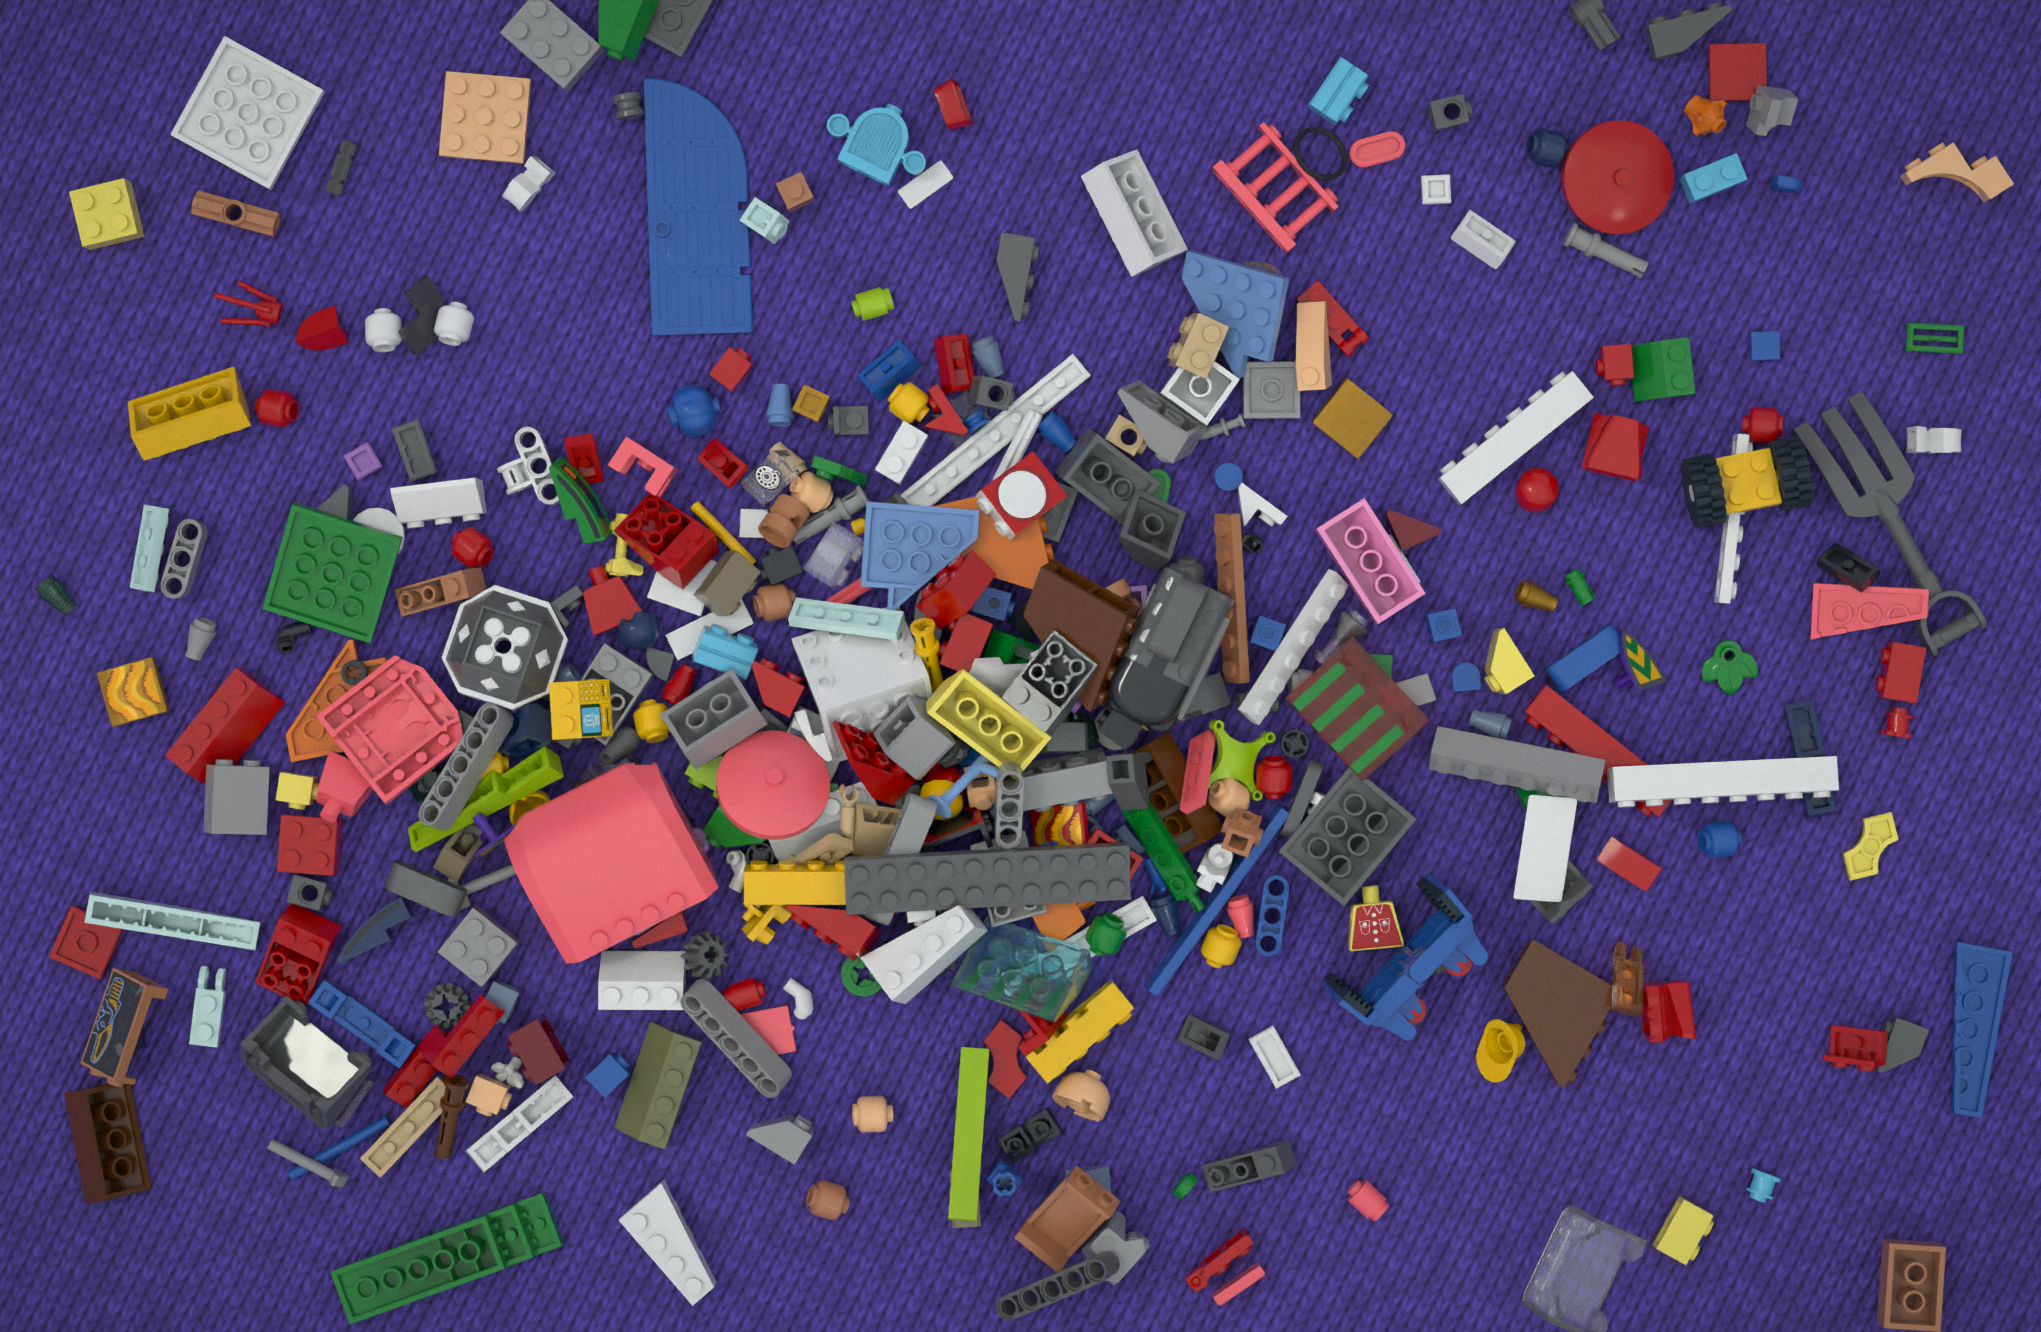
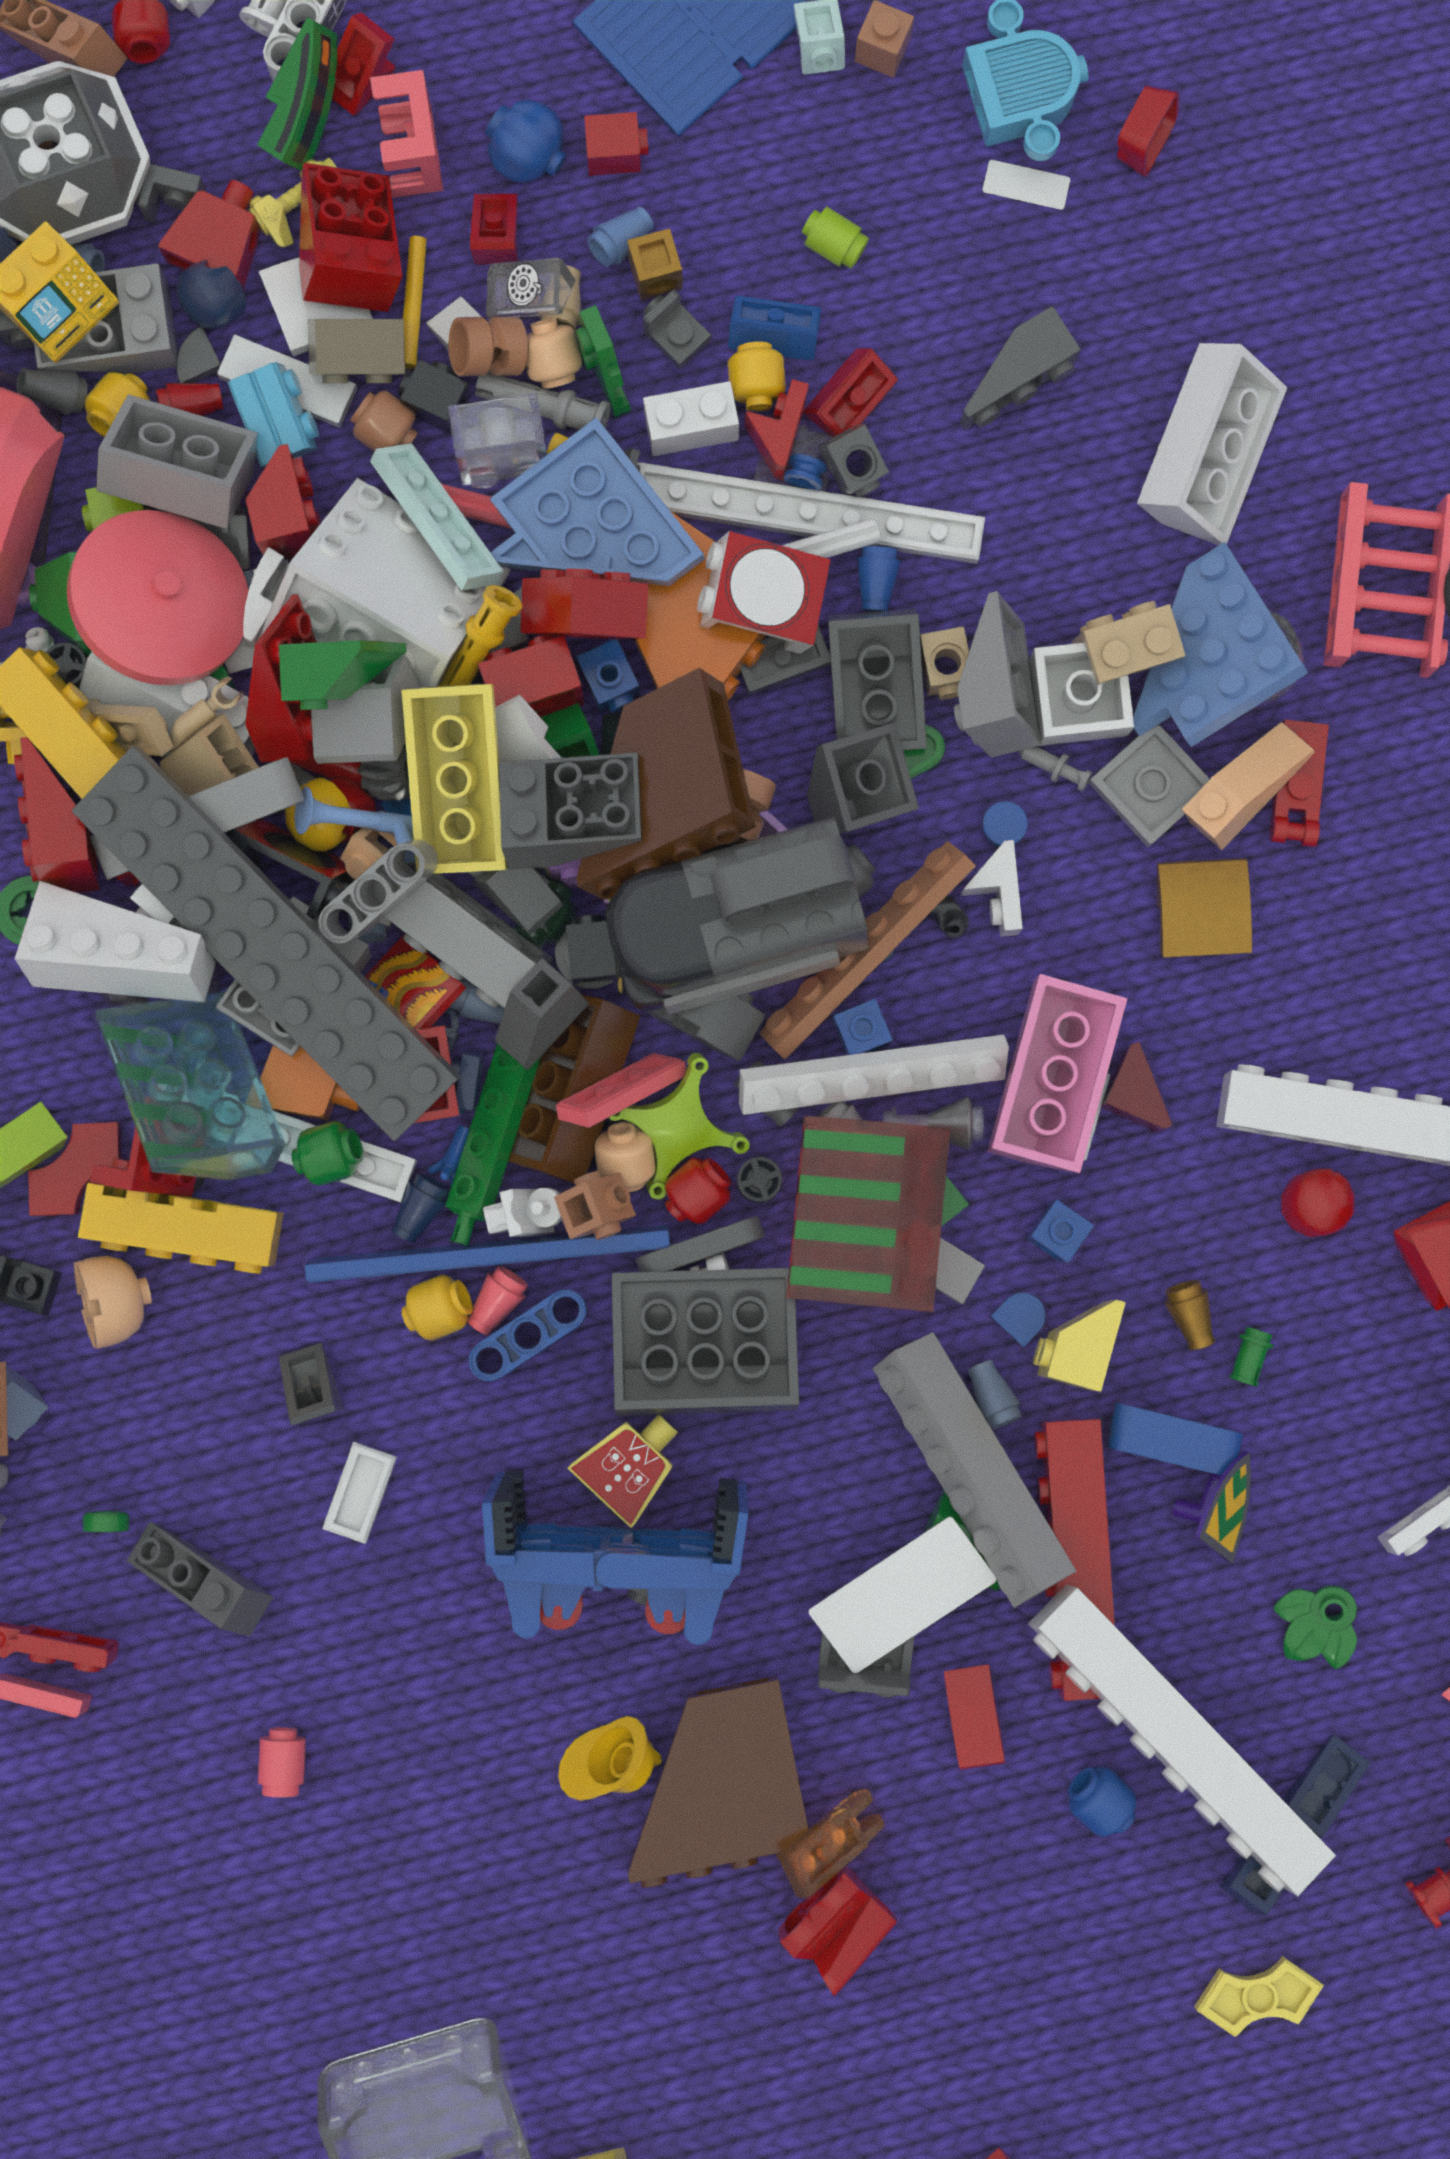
camera: 45 degrees right, 5 degrees down
(887, 735) = (332, 669): none -> green slope
(988, 356) = (895, 421): sand blue cone -> none

